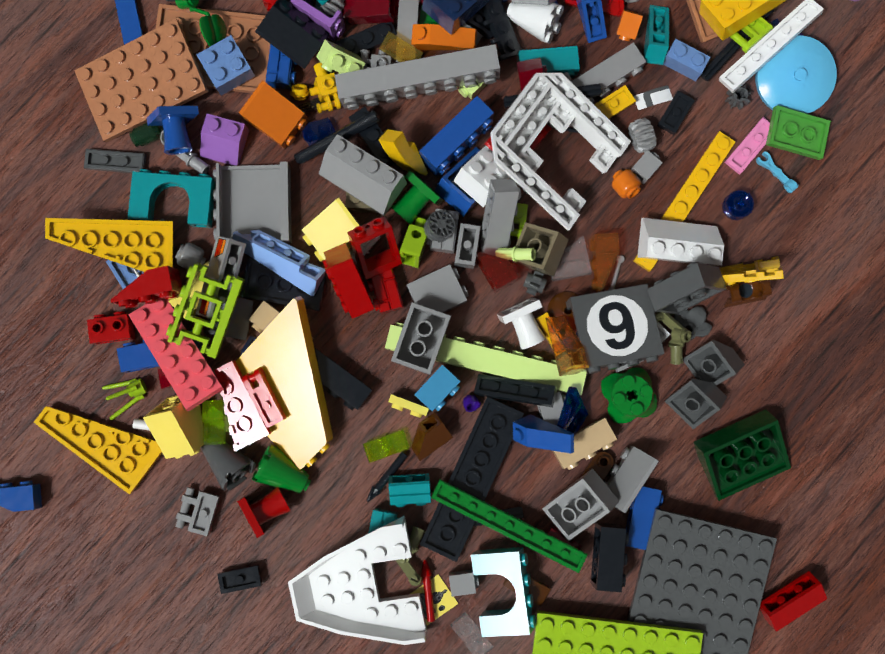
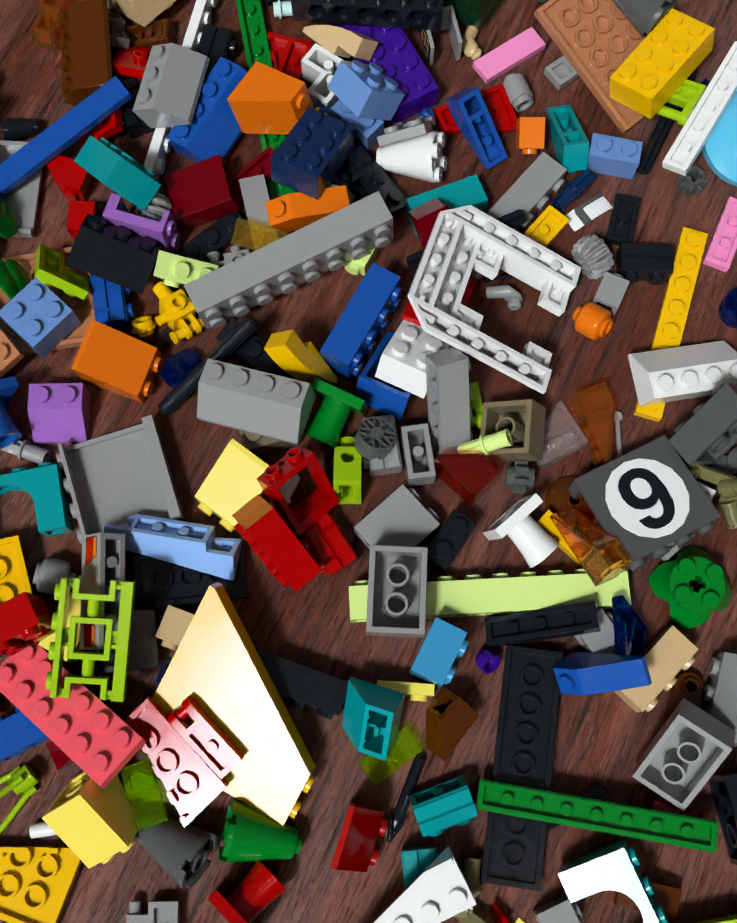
camera: 15 degrees left, 10 degrees down
(243, 34) = (51, 271): none -> lime plate
(346, 492) = (358, 838): none -> red slope
(380, 418) = (372, 717): none -> teal slope
(470, 313) = (449, 541): none -> black brick
(569, 142) = (507, 293): none -> light grey arm
(647, 78) = (572, 190): none -> dark blue axle
(679, 150) = (644, 262): none -> black brick

